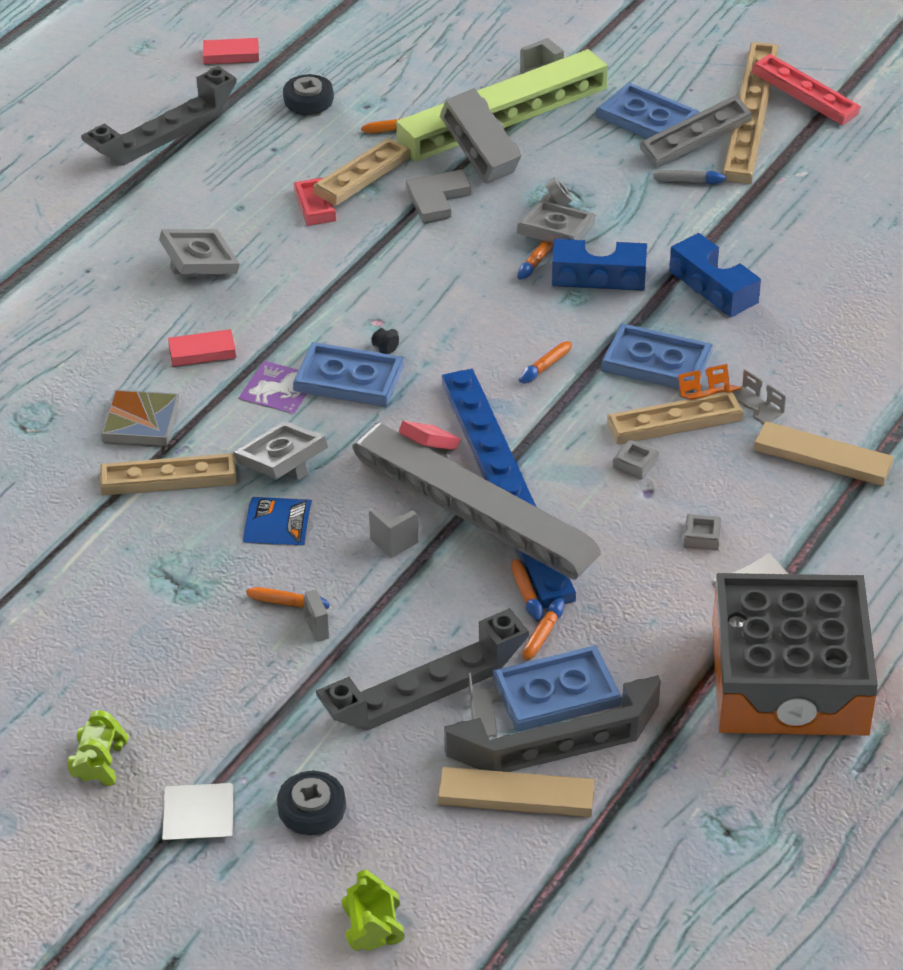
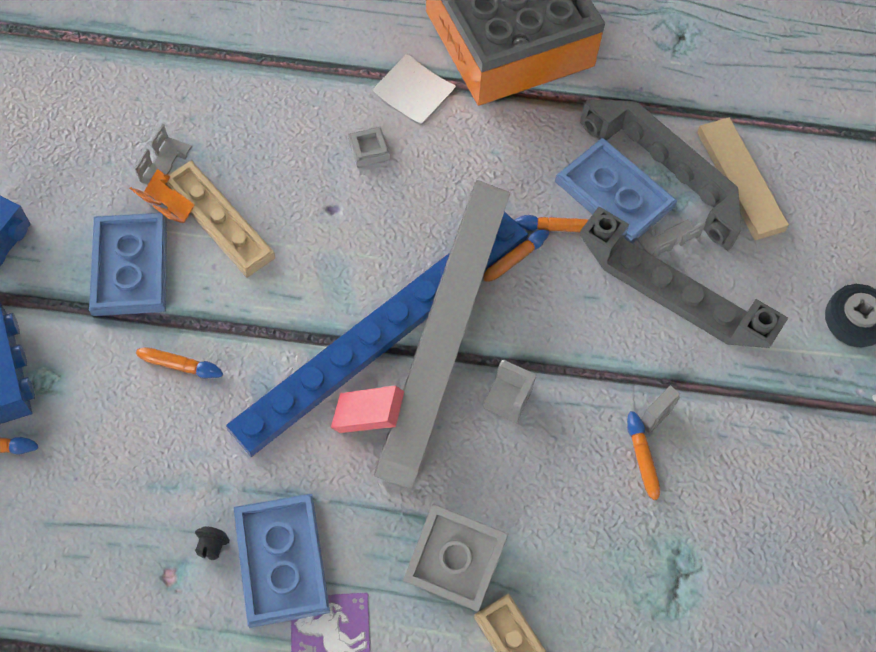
camera: 120 degrees left, 20 degrees up
(277, 521) = (538, 524): blue sticker -> none
(635, 459) = (295, 230): light grey tile -> none
(824, 453) = (219, 87): tan tile -> none

